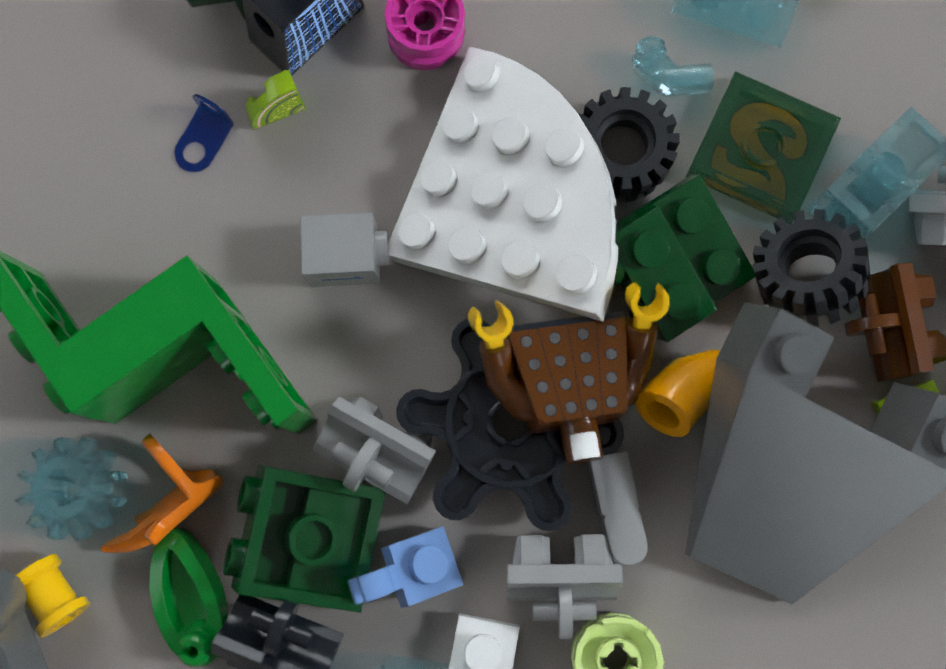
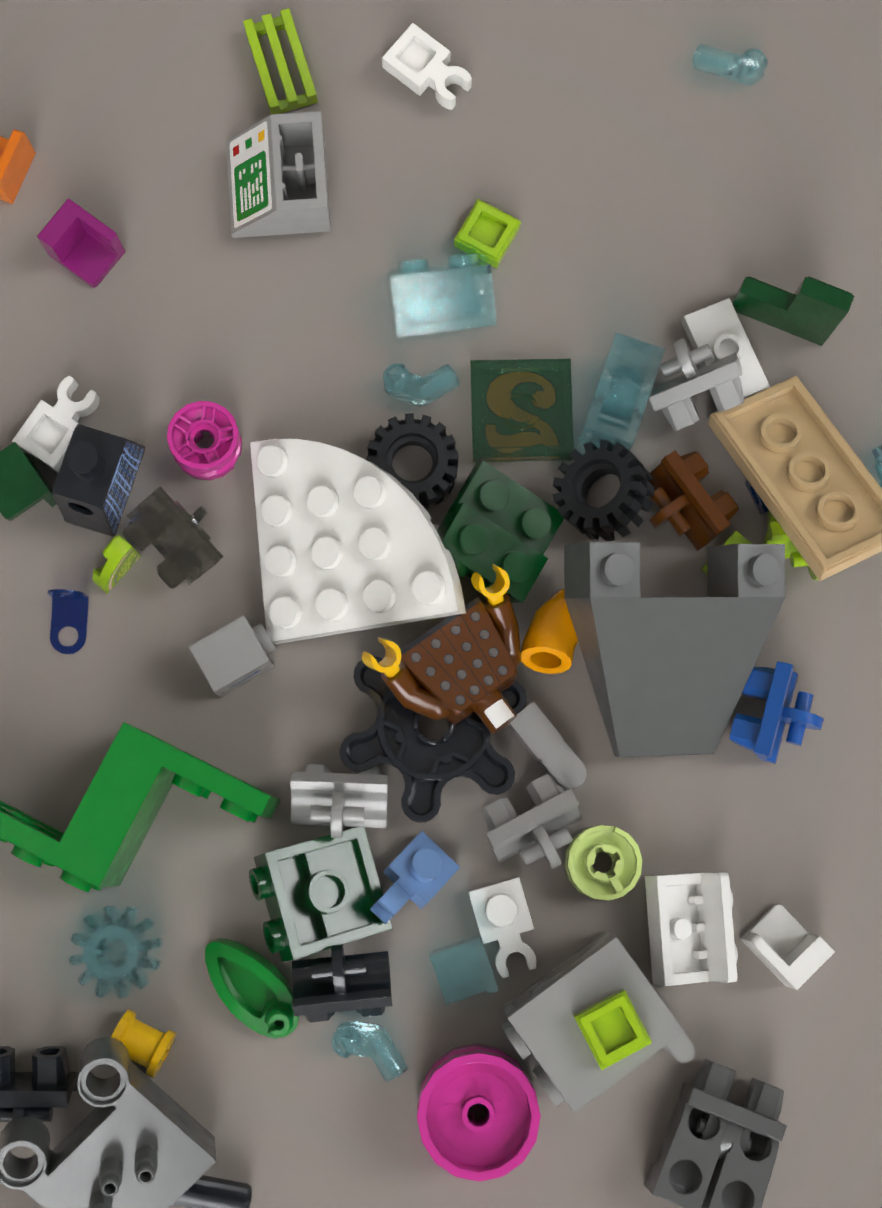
camera: 35 degrees left, 0 degrees up
(154, 524) = (208, 914): orange piece -> none
(346, 99) = (174, 535): none -> clear smoke hips
(896, 570) = (766, 734): none -> blue hips

